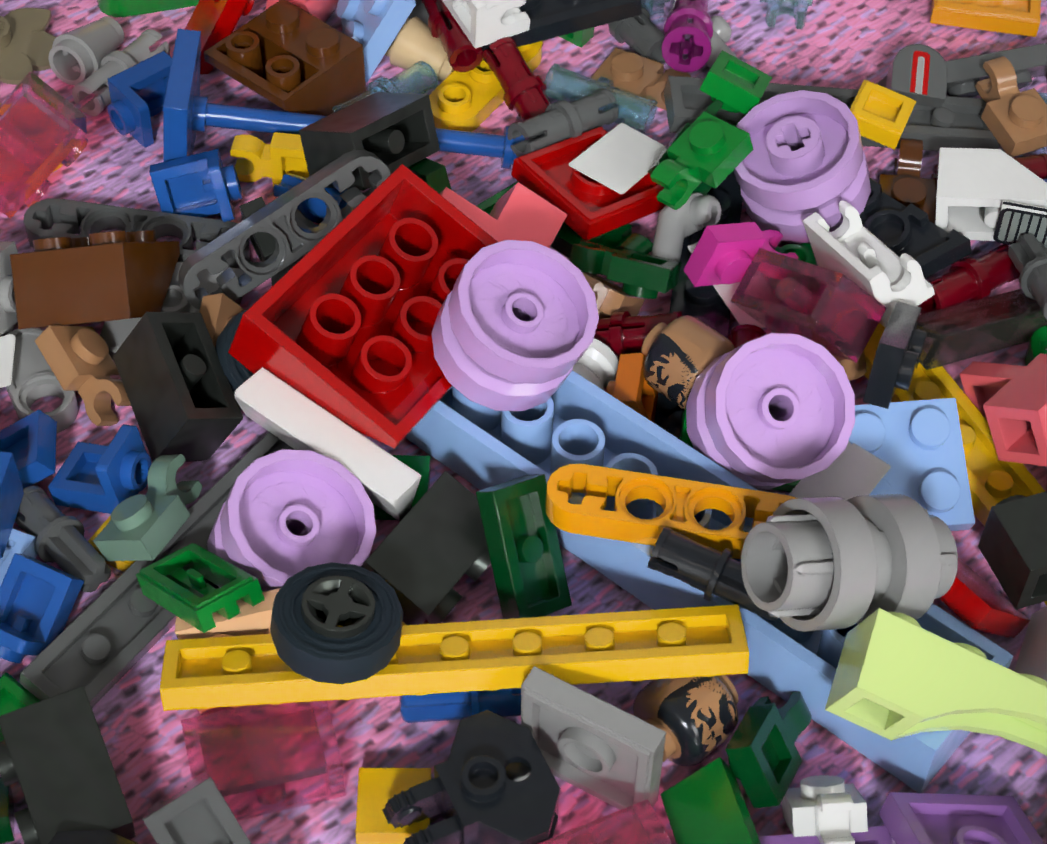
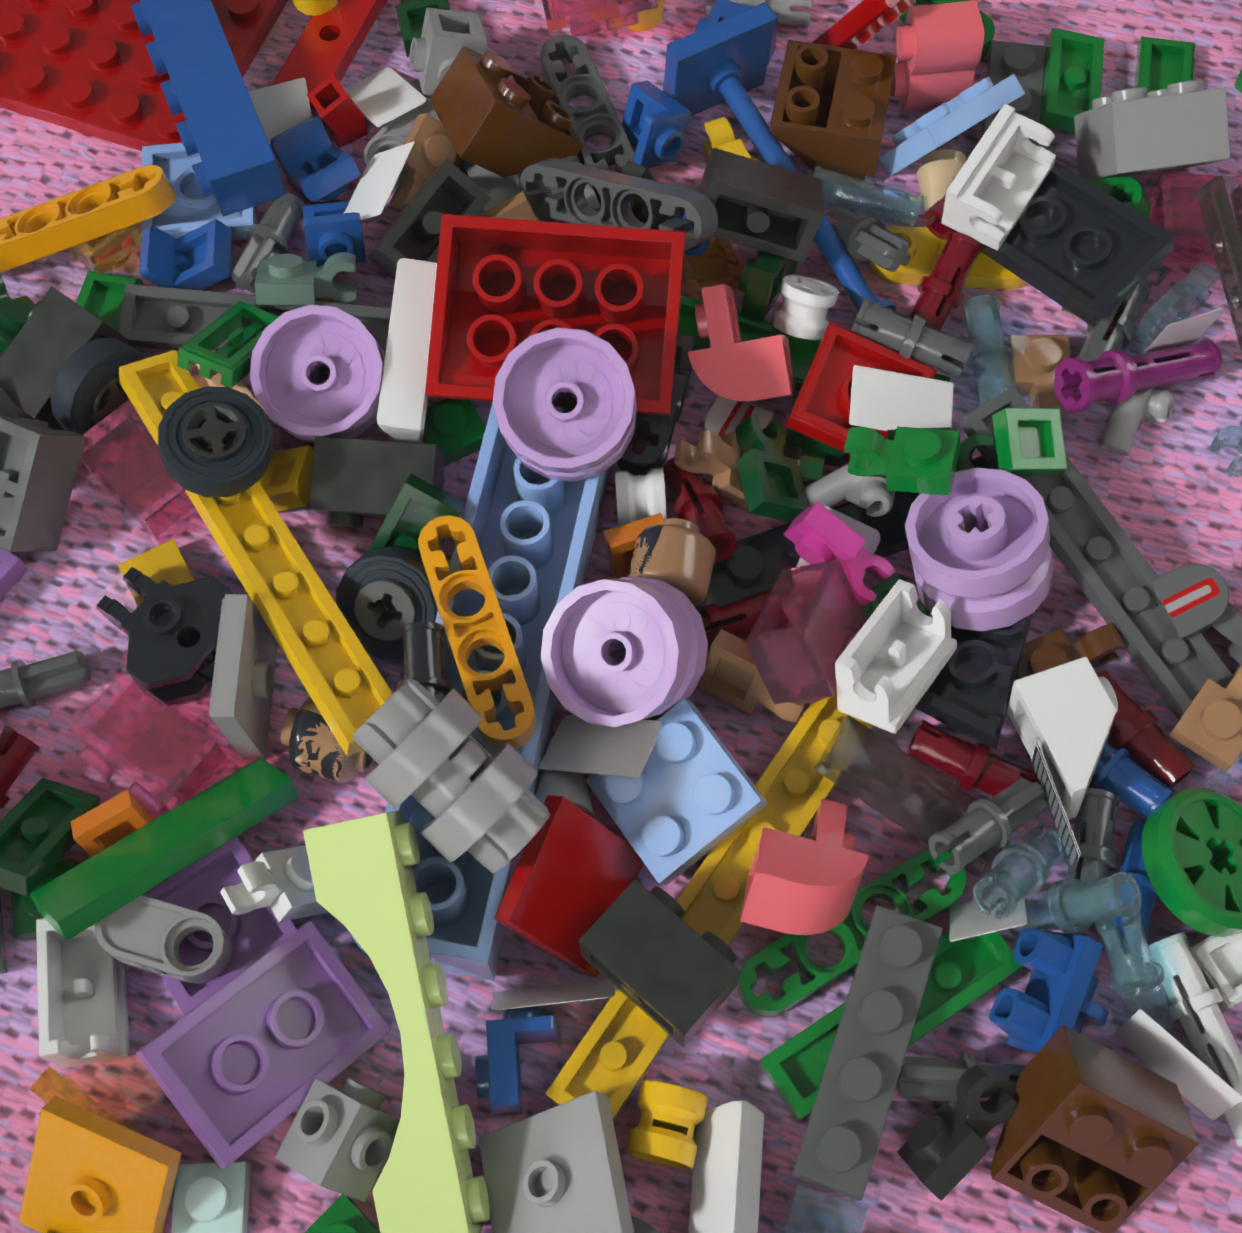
camera: 65 degrees right, 15 degrees up
(88, 404) = (378, 181): none -> white sticker
(143, 742) = (89, 384): none -> black wheel
(459, 99) = (869, 240): none -> dark grey axle
(474, 177) = (804, 307): none -> white wheel
(566, 567) = (398, 578): none -> black wheel
(764, 748) = (320, 802): dark green plate -> none
(881, 113) = (1114, 587): yellow tile -> none
(896, 355) = (771, 723): black plate -> none

